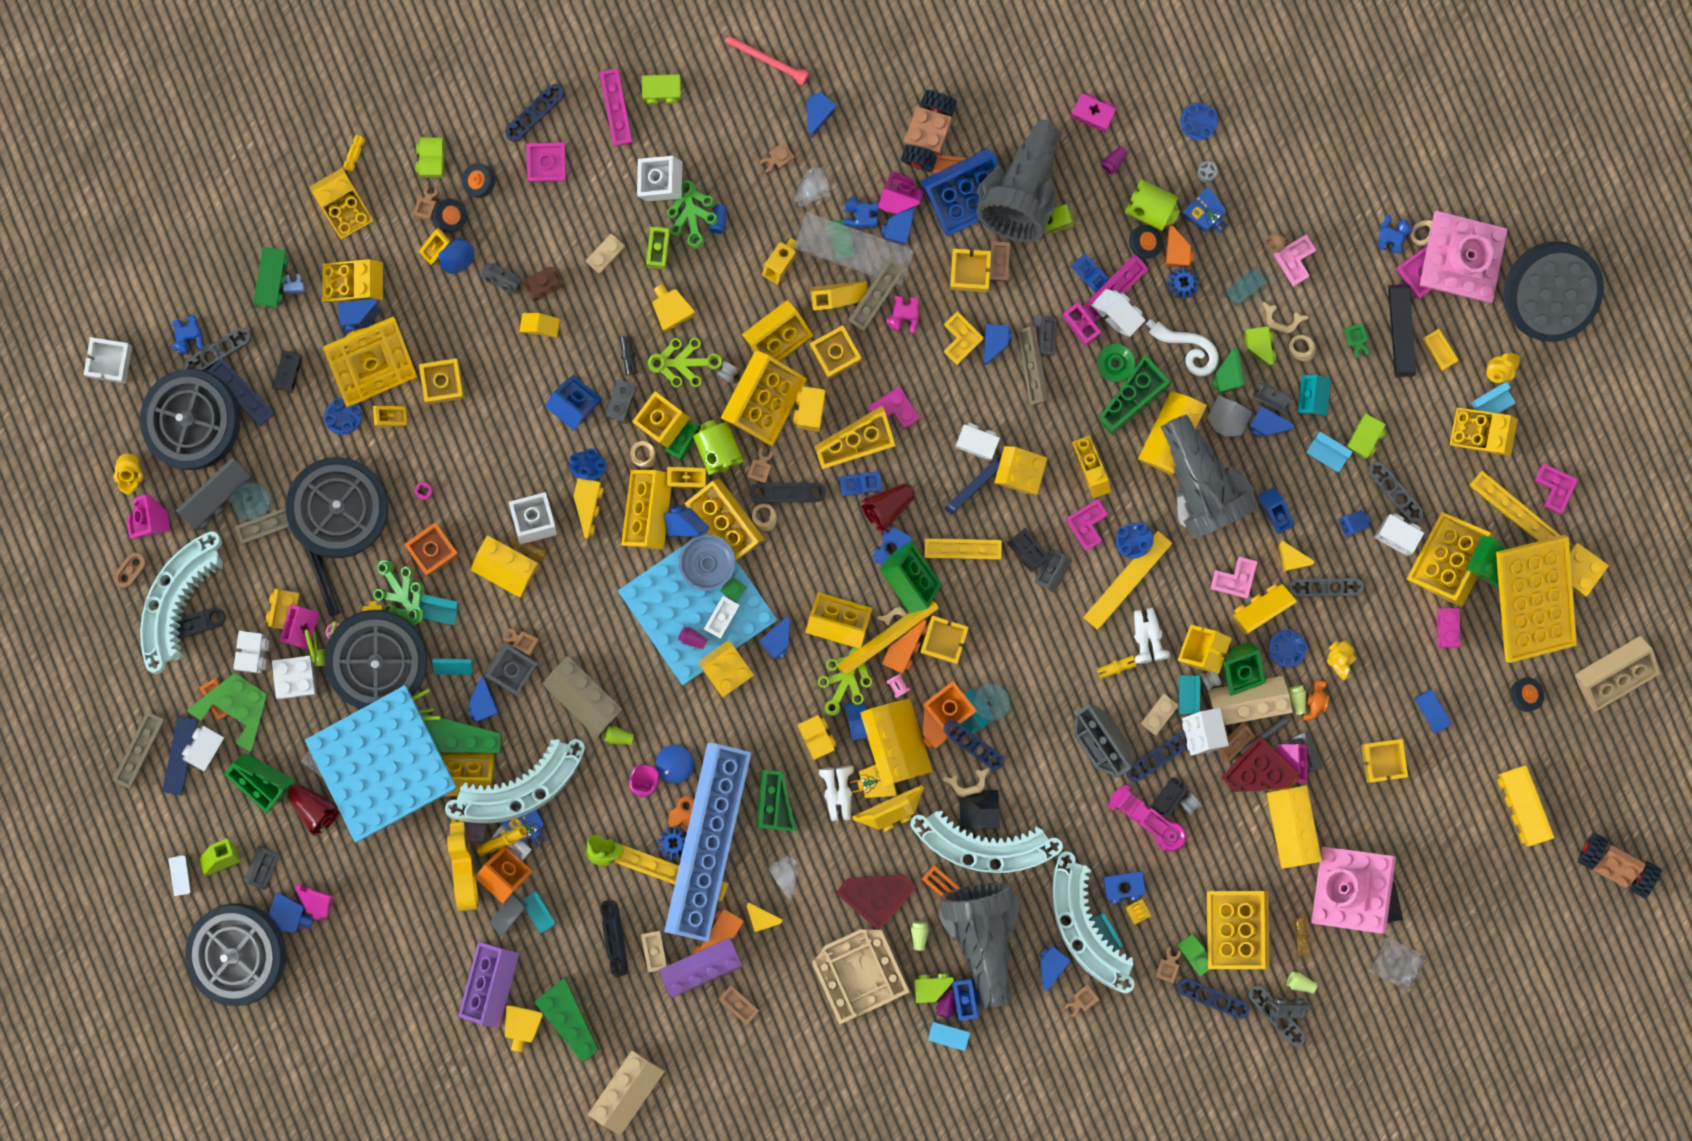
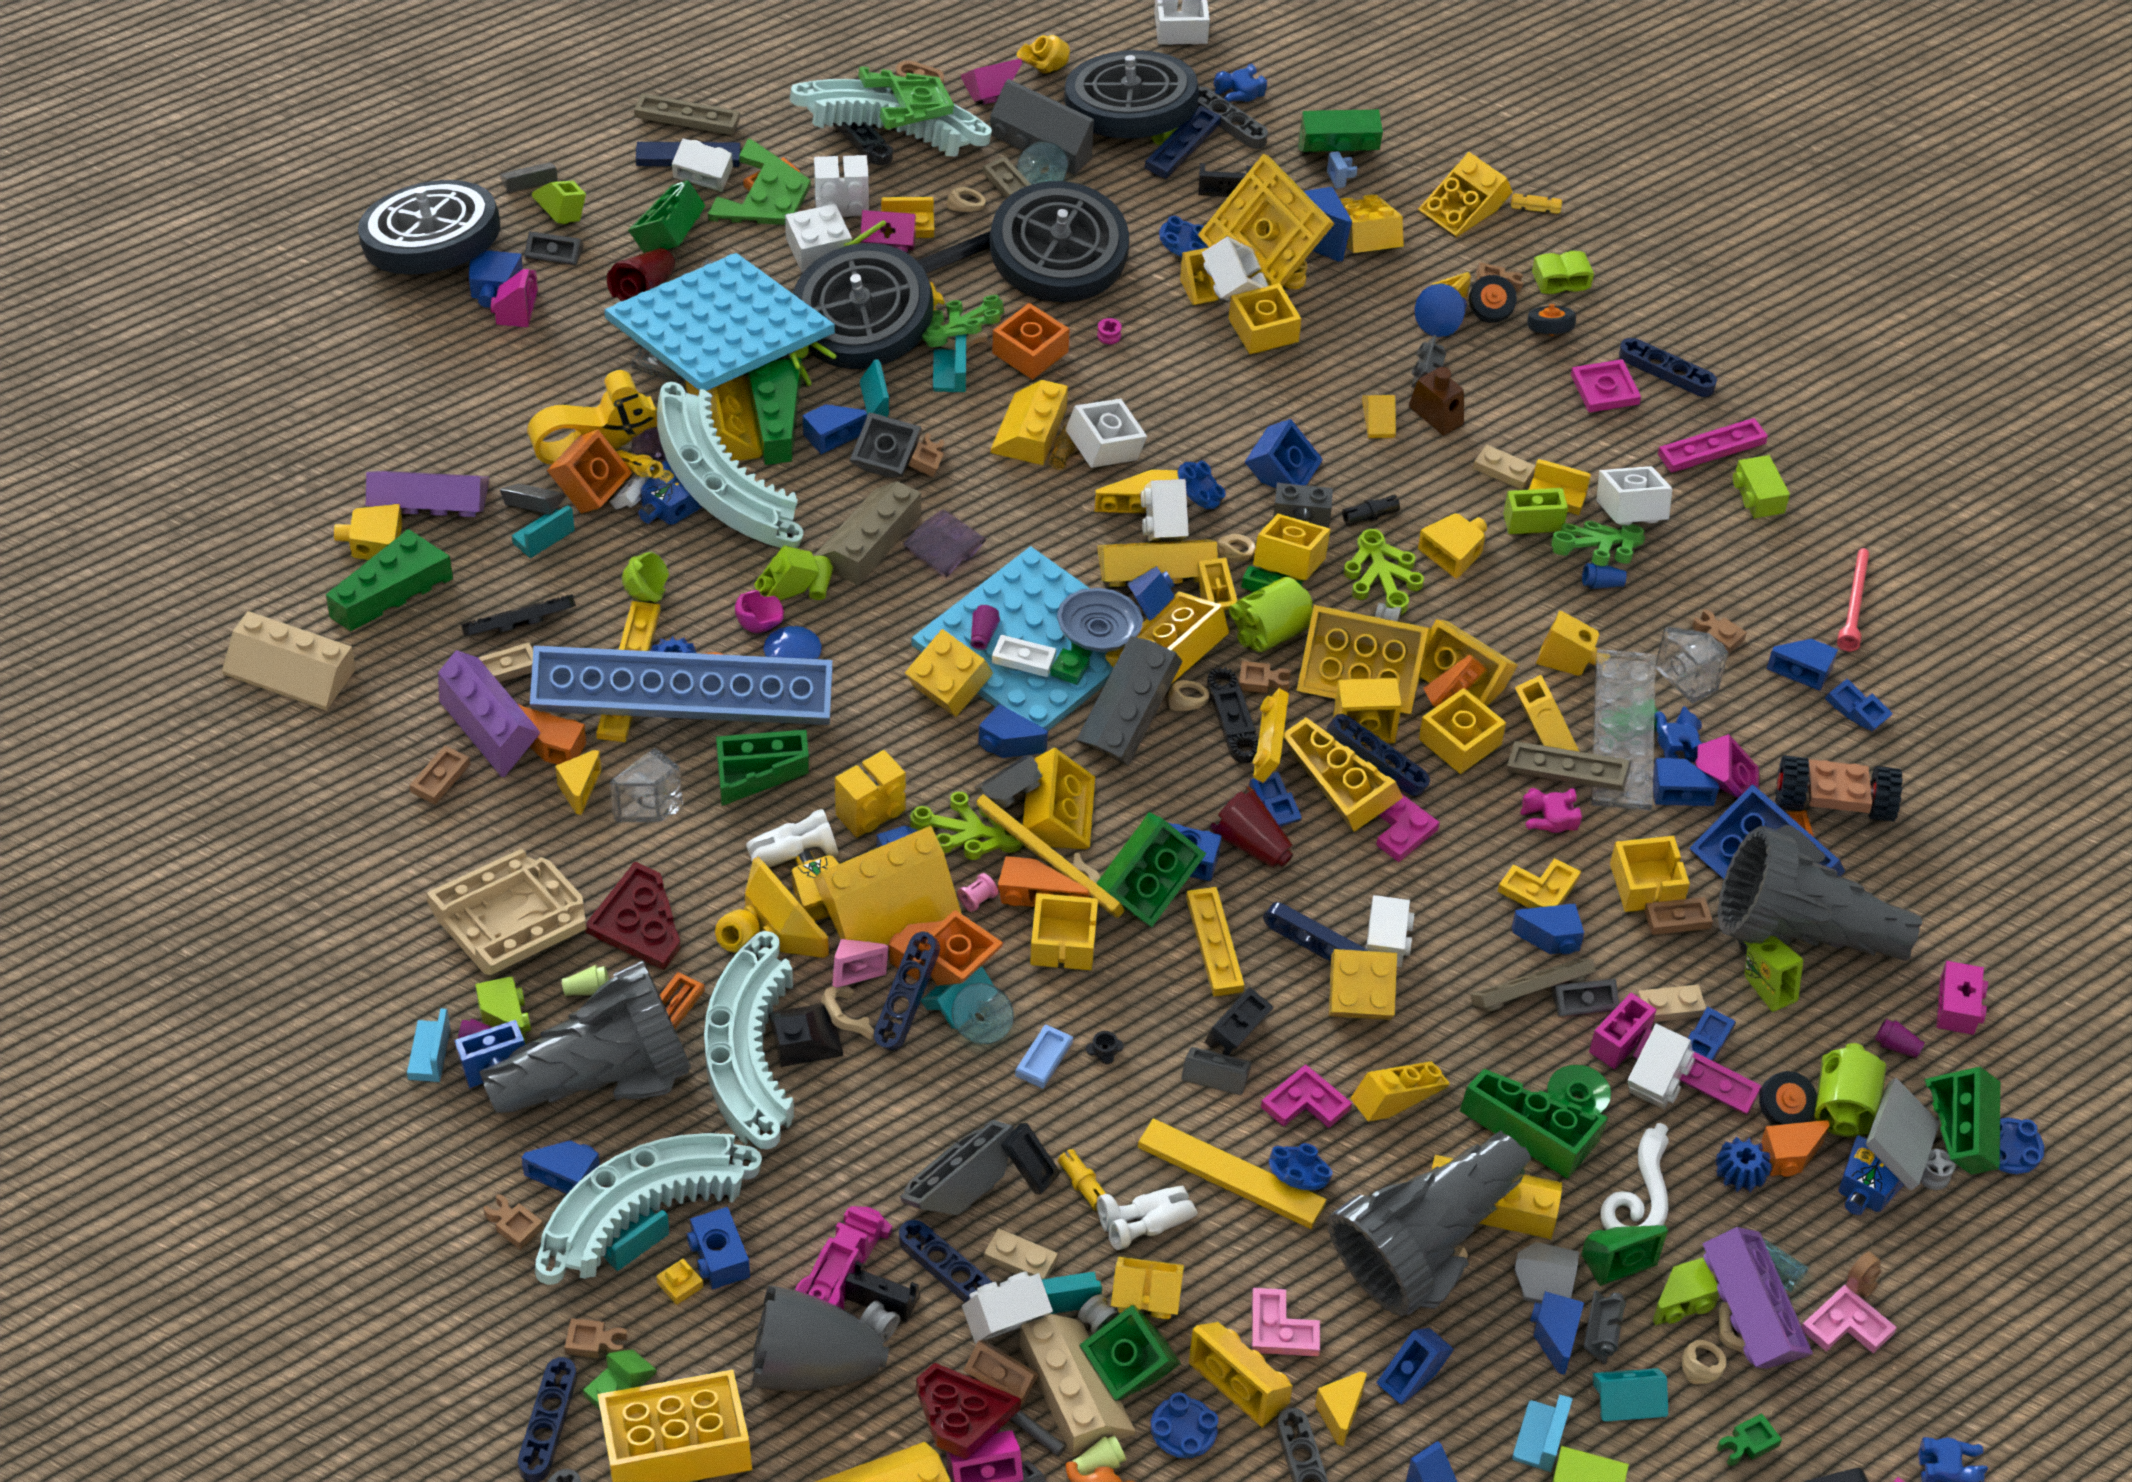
camera: 75 degrees right, 35 degrees down
(175, 578) = (918, 96): none -> bright green wing
(271, 572) = (955, 203): none -> tan piece
(409, 397) = (1230, 267): none -> white piece
(602, 646) = (944, 542): none -> clear purple slope
(617, 757) = (787, 573): none -> lime slope
(619, 497) = (1165, 510): none -> white brick
(636, 225) = (1573, 481): none -> yellow panel
(776, 560) = (1130, 699): none -> dark grey slope
(800, 353) = (1454, 680): none -> orange slope
(817, 475) = (1270, 735): none -> yellow plate
(824, 649) = (1016, 777): none -> dark grey slope
(848, 413) = (1379, 753): none -> dark blue beam
(857, 90) = (1853, 704): none -> blue slope
(902, 838) = (736, 929): none -> yellow head
(939, 770) = (858, 962): none -> bright pink slope
(1024, 670) = (1044, 1056): none -> light blue tile
(1025, 628) = (1108, 1040): none -> black plate
(1059, 286) = (1675, 1002): none -> tan plate
(1103, 695) = (1030, 1158): none -> black tile
(1185, 142) = (1969, 1117): none -> green wedge
(1191, 187) = (1902, 1134): none -> light grey tile
(1205, 846) = (811, 1344): none -> dark grey cylinder
(1279, 308) = (1756, 1298): none -> medium lavender slope

